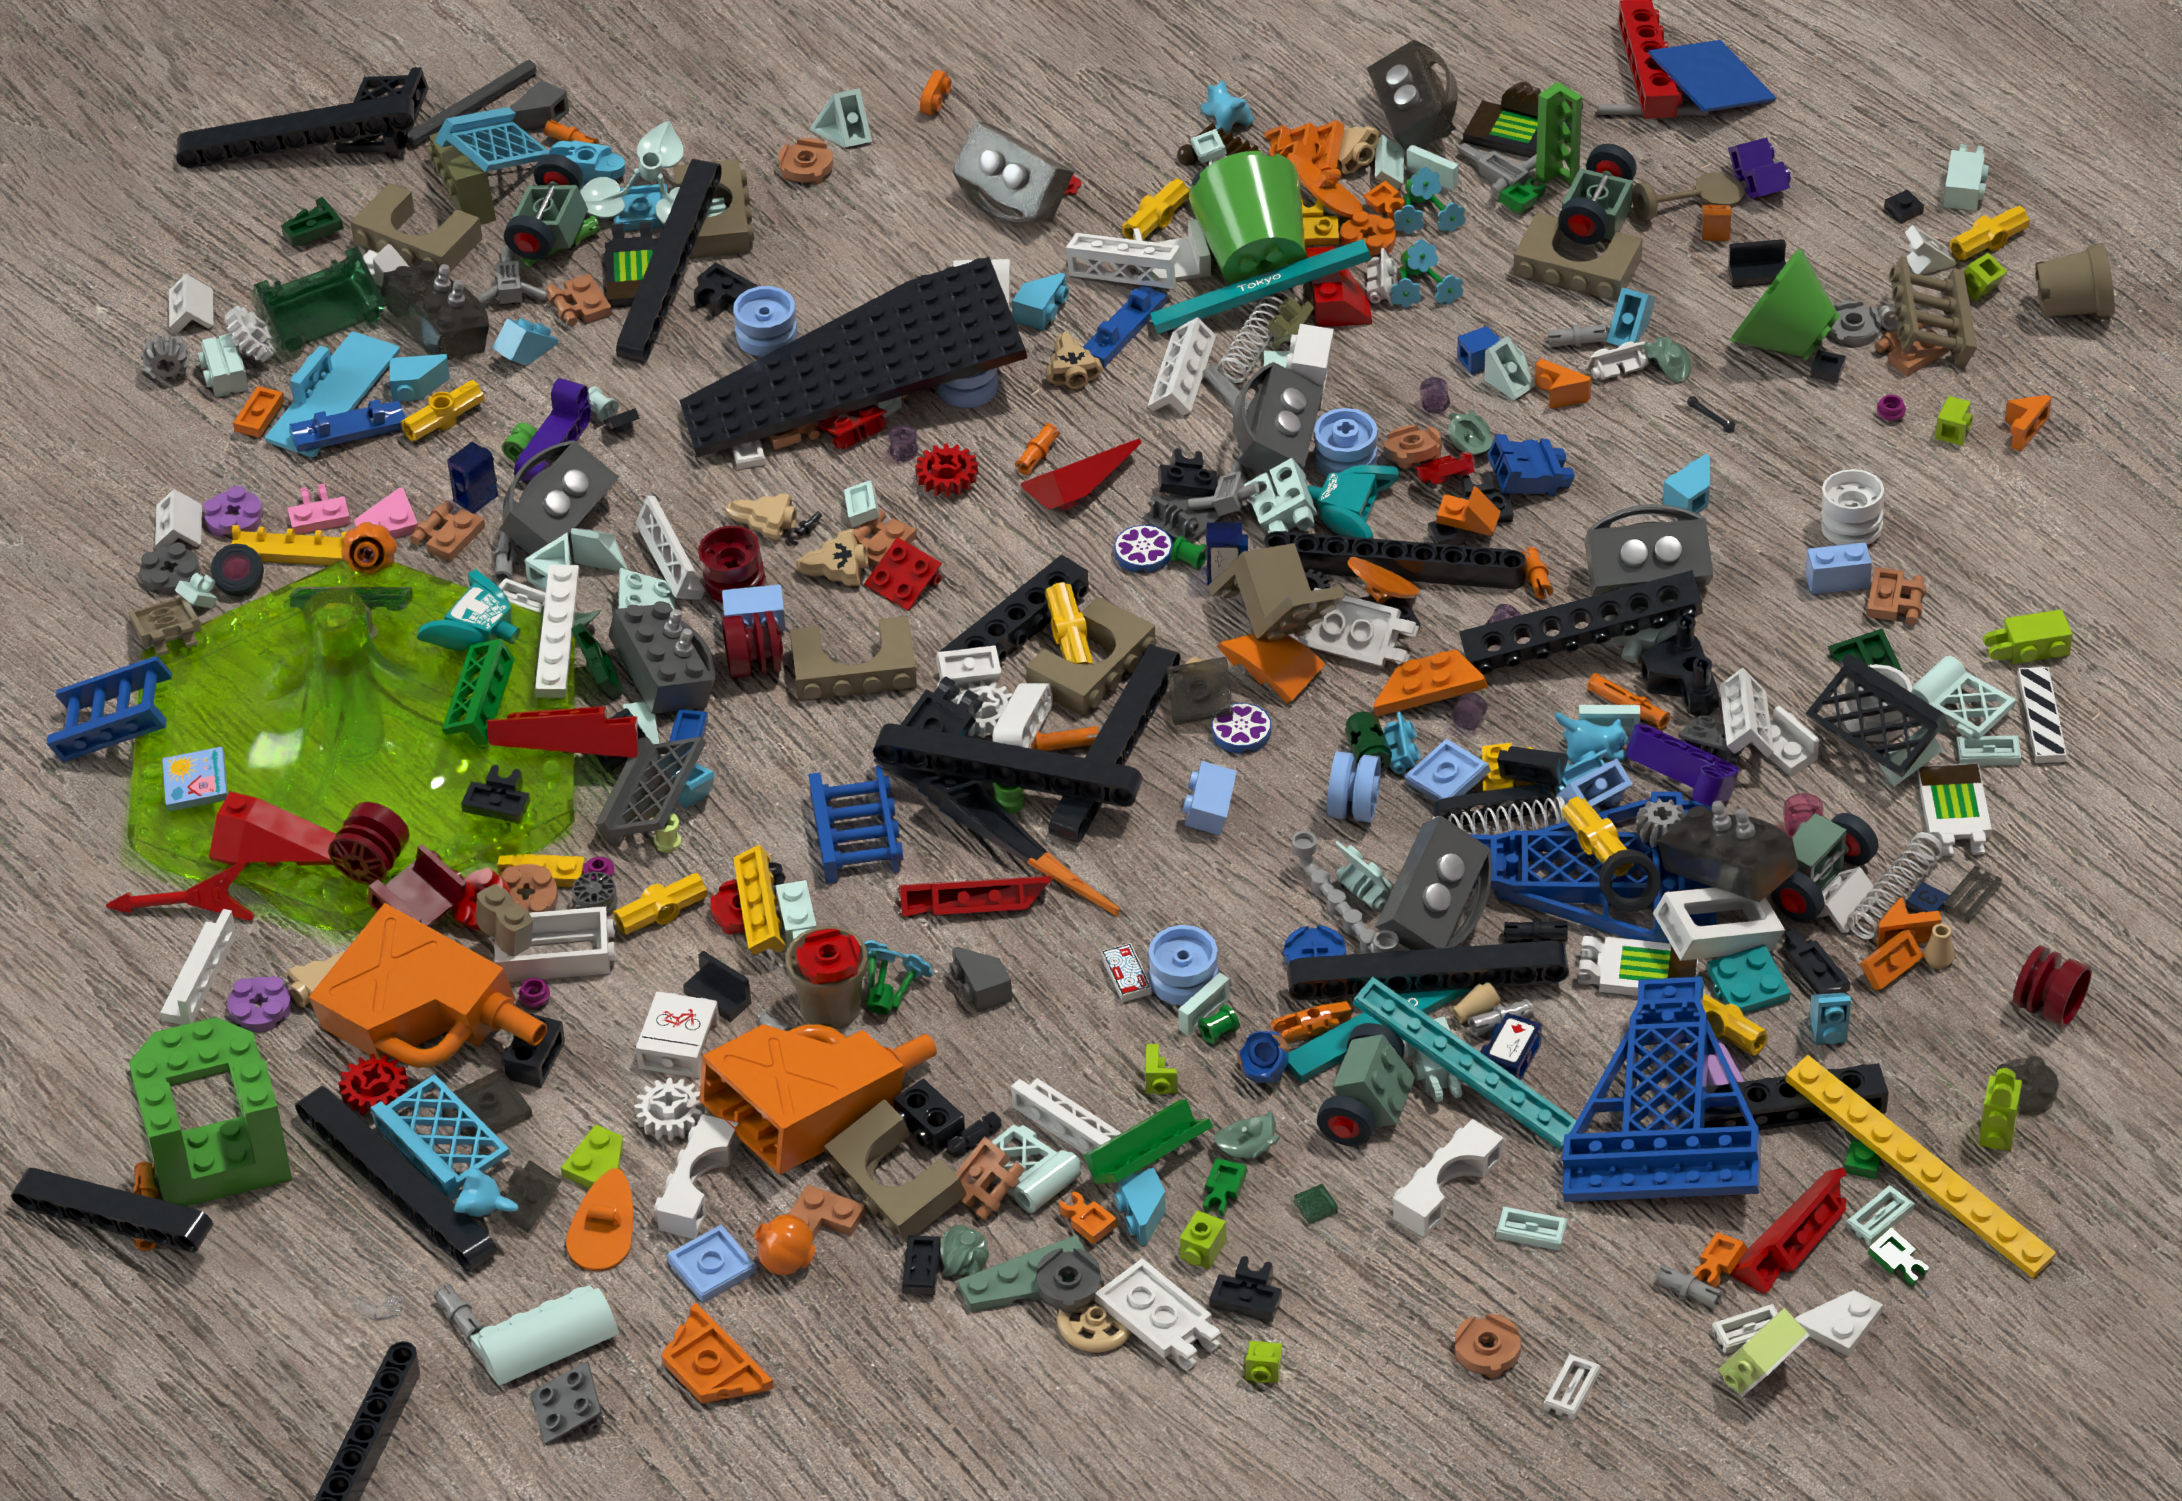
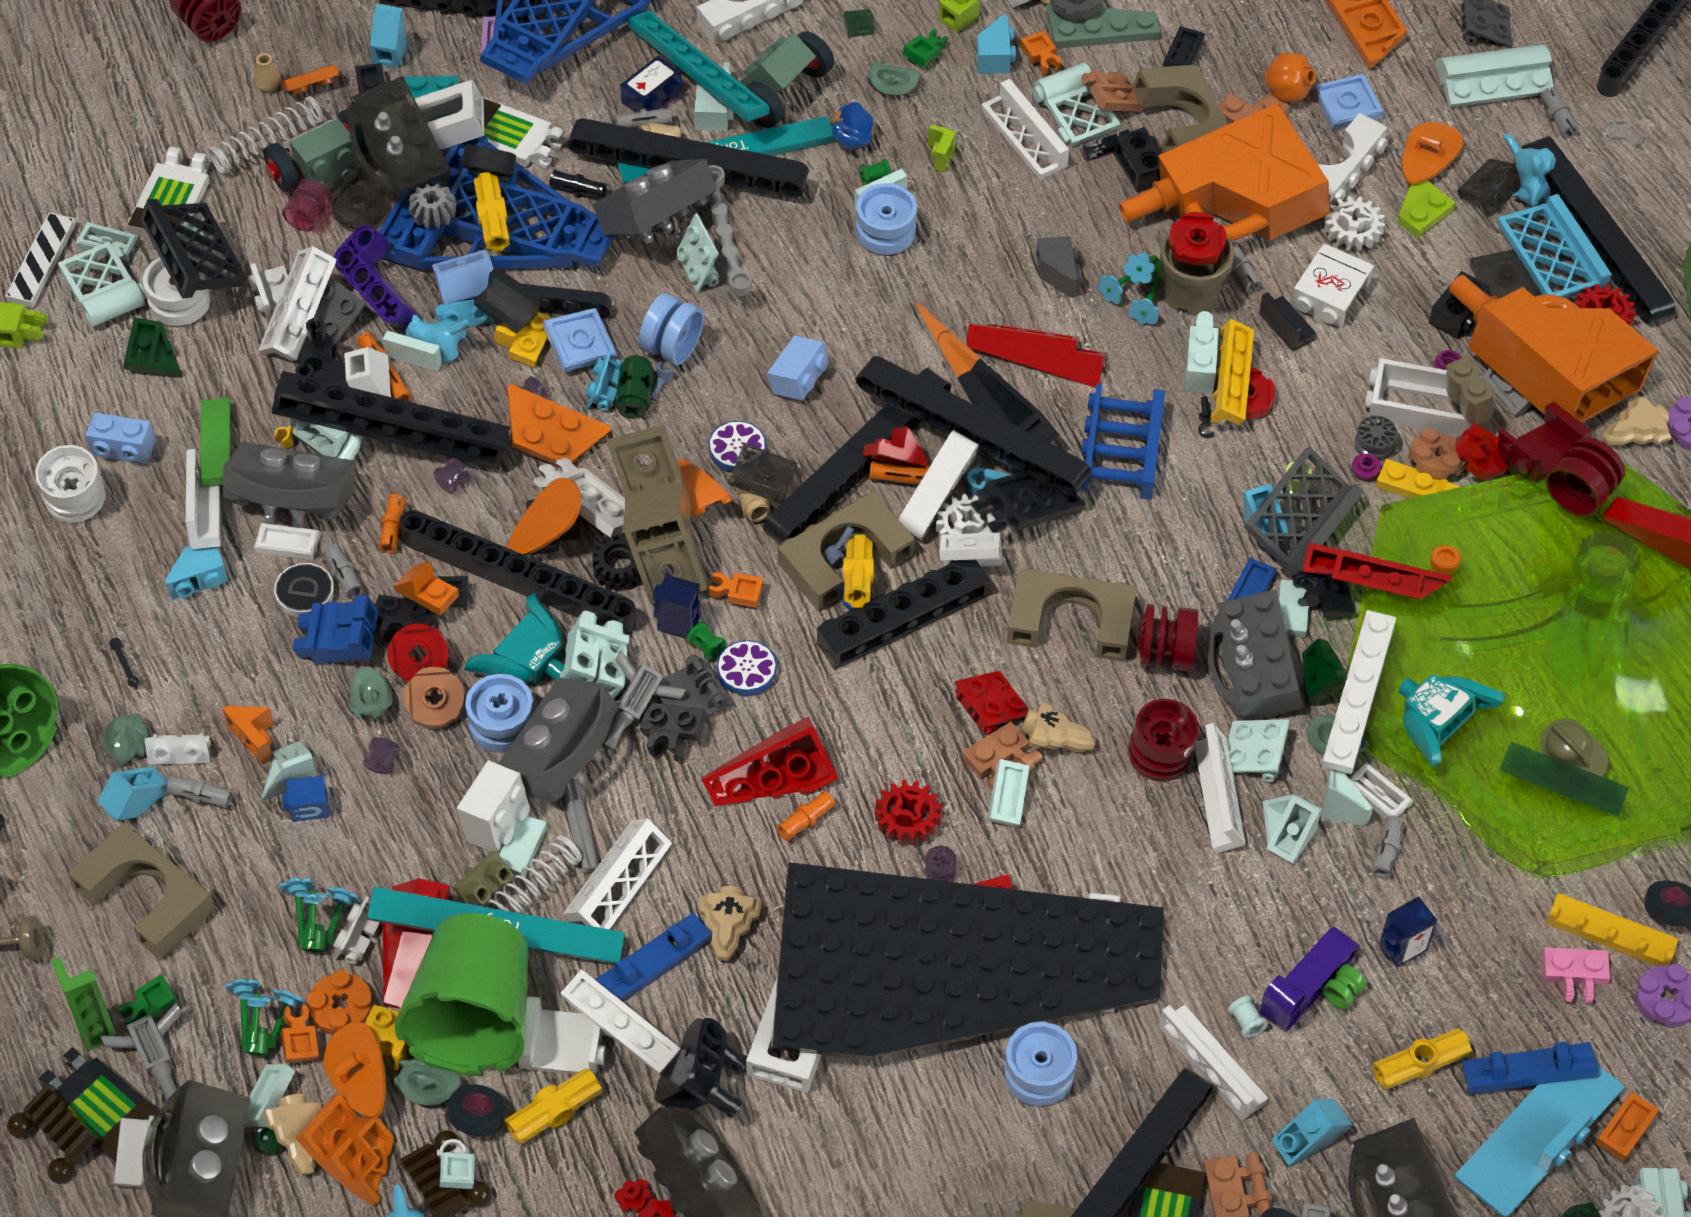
camera: 165 degrees left, 10 degrees up
(370, 539) = (1534, 853): orange plant -> none
(393, 513) = (1503, 937): bright pink wing -> none
(417, 376) = (1447, 1117): medium azure slope -> none
(455, 534) = (1439, 892): nougat plate -> none
(486, 689) = (1443, 621): green fence -> none
(497, 798) = (1453, 510): black plate -> none
(498, 754) = (1445, 559): none -> orange tile
(556, 496) = (1325, 865): dark grey piece -> none
(621, 421) = (1228, 985): black plate -> none
(623, 371) = (1212, 1061): none -> white fence
(660, 903) = (1318, 412): yellow piece -> none
(719, 287) = (1071, 1147): black plate -> none
(754, 600) = (1151, 683): light blue brick -> none
(765, 515) = (1109, 815): tan rock -> none
(805, 527) = (1072, 794): black hand -> none
(963, 1251) = (1144, 55): sand green hat -> none
(1039, 300) = (734, 1007): medium azure slope -> none
(1046, 234) = (688, 1079): none -> black piece
(1076, 732) = (899, 450): none -> red slope
(1099, 653) = (833, 553): none -> sand blue hand
(1126, 972) = (932, 246): tile -> none
(1144, 1143) = (978, 85): green fence -> none
(1177, 603) = (741, 590): none -> orange plate
(1311, 1021) = (809, 153): orange hinge -> none
(1313, 943) = (767, 223): blue tile -> none
(1445, 168) = (222, 1068): light aqua tile -> none
(1471, 105) = (129, 1152): none -> white panel
(1557, 805) = (614, 288): white piece -> none
(1558, 524) = (343, 571): none -> light grey pin
(1584, 504) = (302, 586): none -> black tile
(1599, 196) = (84, 938): brick -> none
(1631, 666) = (368, 371): none -> white slope
(1726, 532) = (202, 507): none -> white fence
(1729, 1023) = (468, 60): yellow piece -> none
(1747, 590) = (214, 440): none -> bright green tile
(1886, 593) = (99, 399): nougat plate -> none
(1898, 920) = (278, 98): orange slope -> none
(1926, 899) = (242, 123): dark blue tile -> none
(1961, 889) = (206, 118): clear smoke tile -> none

